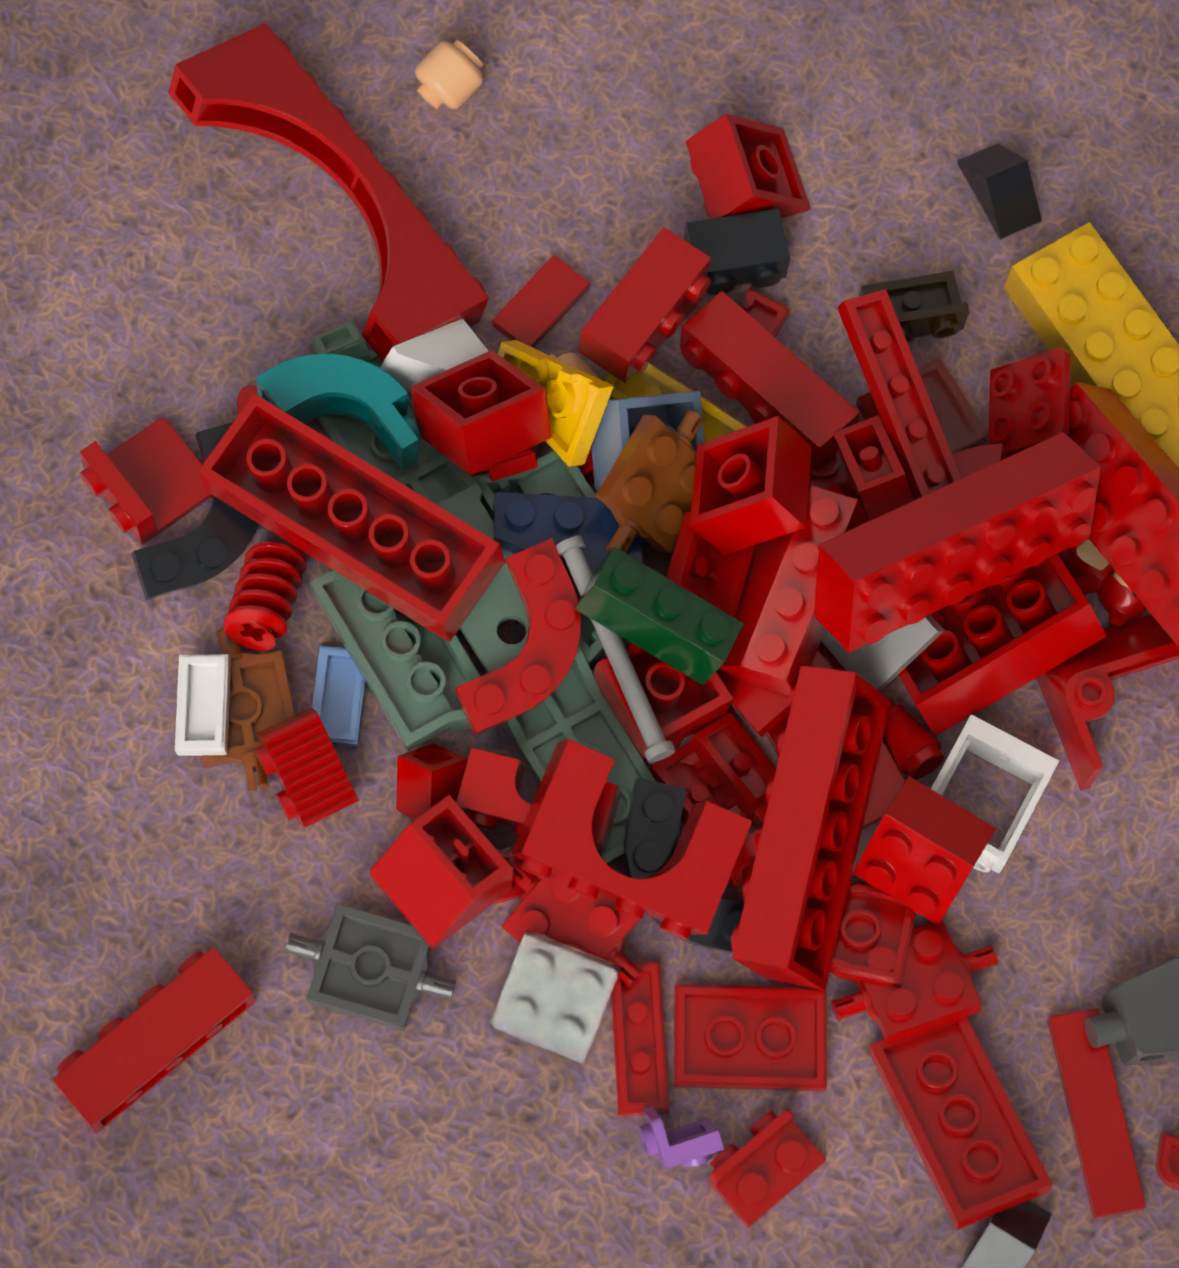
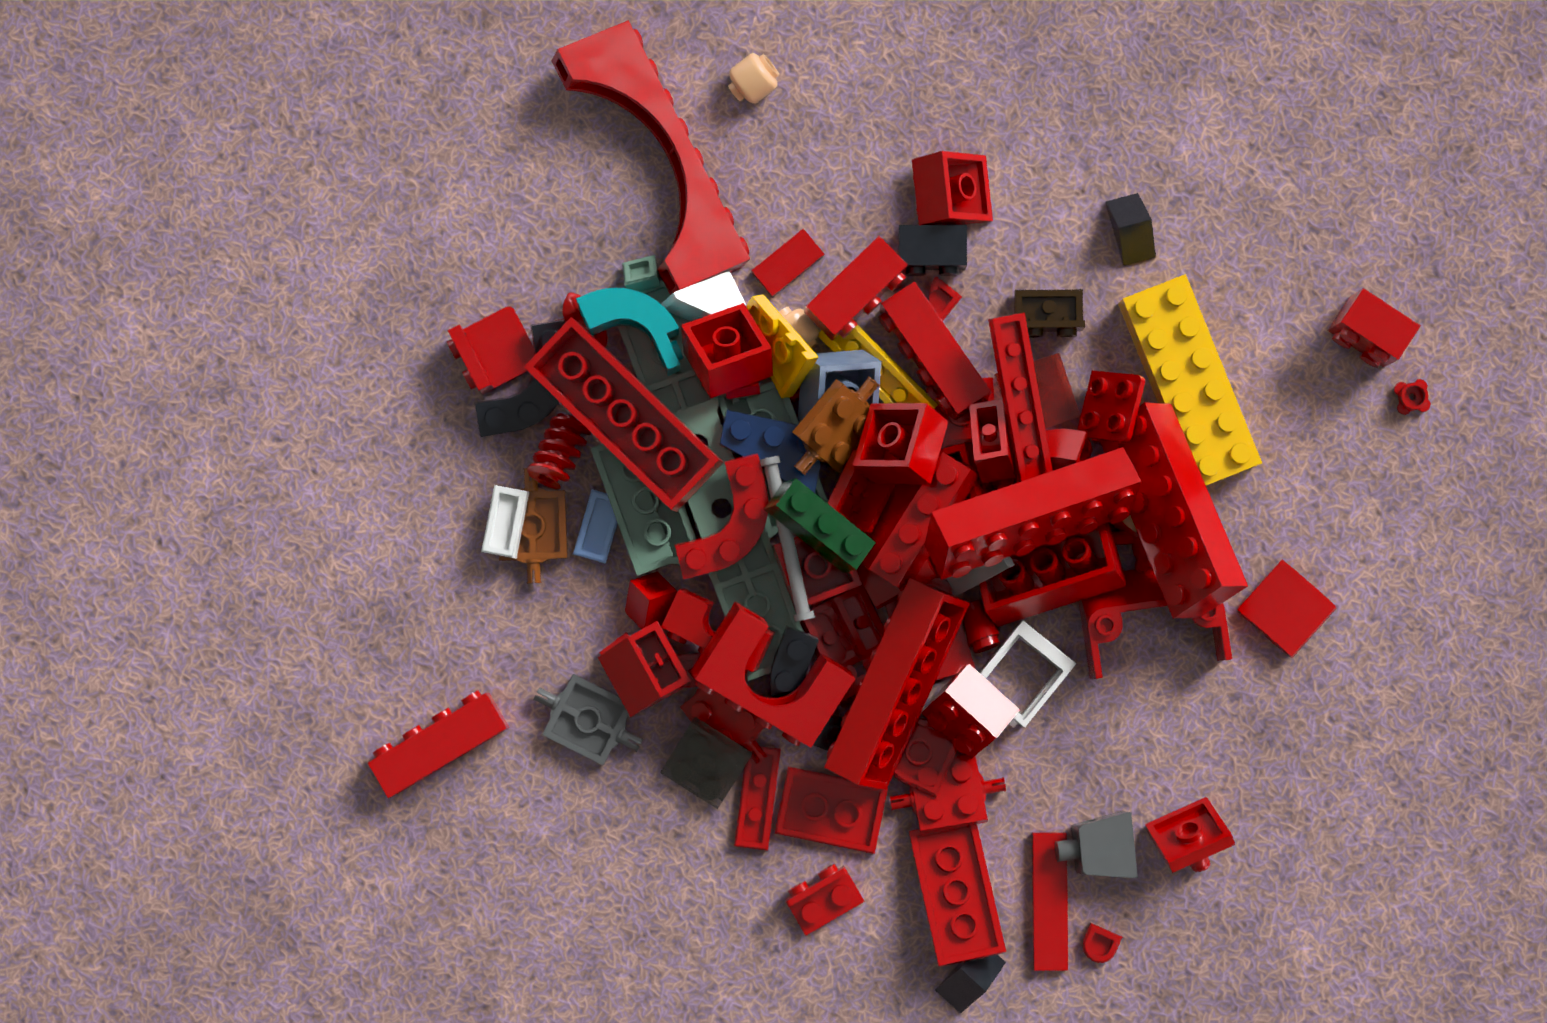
camera: 15 degrees right, 15 degrees up
(306, 768) = (566, 578): red brick -> none
(684, 1145) = (770, 875): medium lavender bracket -> none

